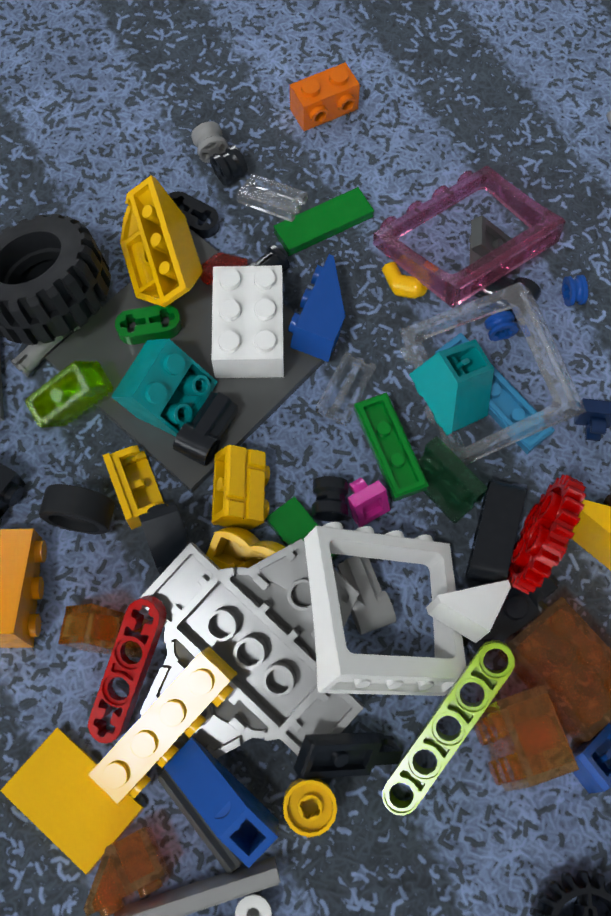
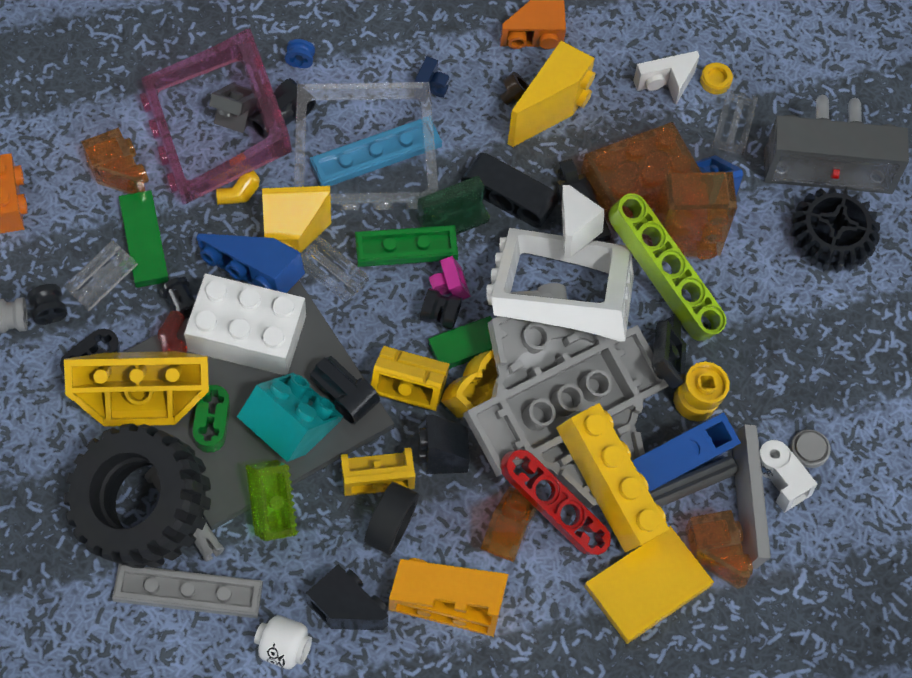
camera: 80 degrees left, 5 degrees down
(377, 331) = (296, 214): none -> yellow slope
(391, 170) = (113, 162): none -> clear orange slope
(456, 385) = (369, 172): teal slope -> none
(501, 325) = (315, 122): blue bush -> none
(546, 534) = (534, 142): red gear -> none

